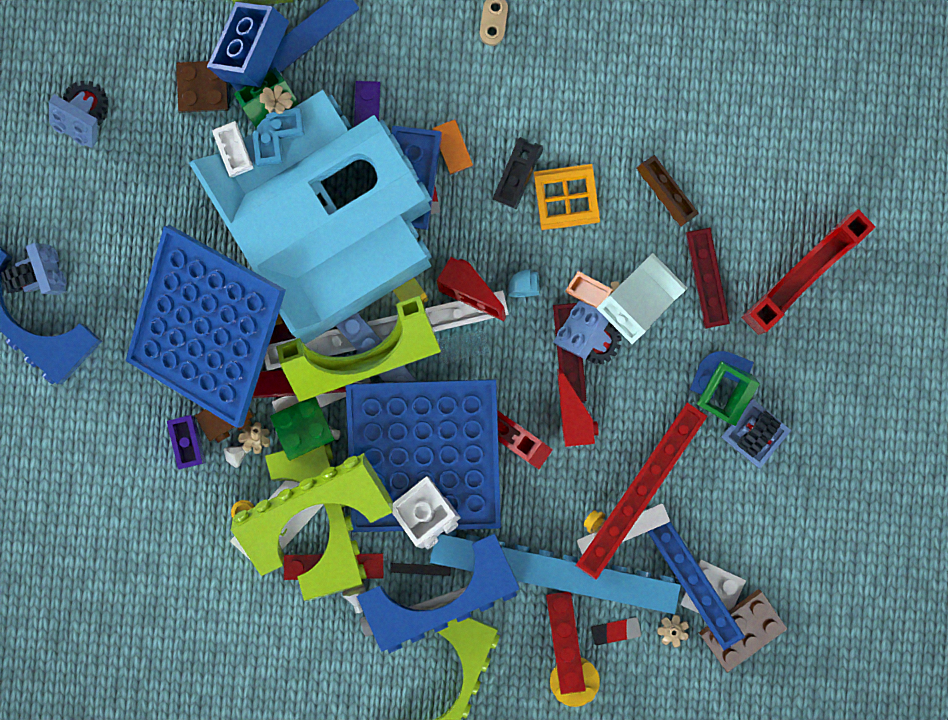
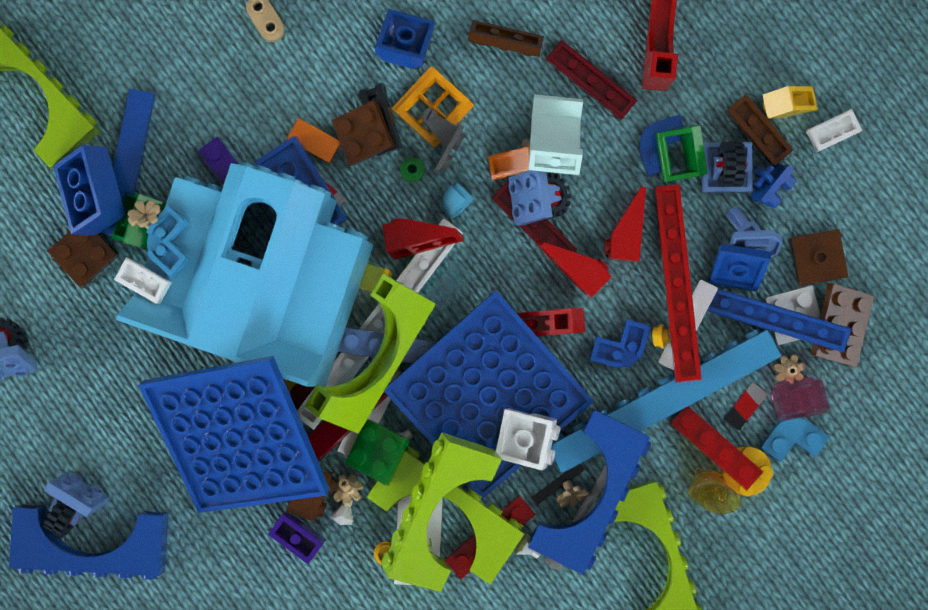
camera: 40 degrees left, 0 degrees up
(423, 586) = (571, 495): none -> tan plant
(495, 173) = (363, 133): none -> reddish brown plate
(510, 240) = (412, 177): none -> green plate
(534, 675) = (713, 493): none -> clear yellow piece
(558, 511) = (626, 351): none -> blue plate
(559, 227) = (447, 134): none -> dark grey plate
(588, 126) = (404, 39): none -> blue slope
(632, 422) = (626, 237): none -> red slope
(632, 679) = (793, 431): none -> dark azure plate
(661, 660) = (800, 399): none -> clear pink brick
(699, 518) = (739, 267): none -> blue tile
(724, 505) = (750, 235): none -> medium blue piece
(769, 563) = (818, 257): none -> reddish brown plate
(780, 472) = (770, 181): none -> blue hips
(805, 426) = (759, 130): none -> reddish brown plate
(847, 423) = (789, 101): none -> yellow slope
(863, 474) = (834, 130): none -> white plate

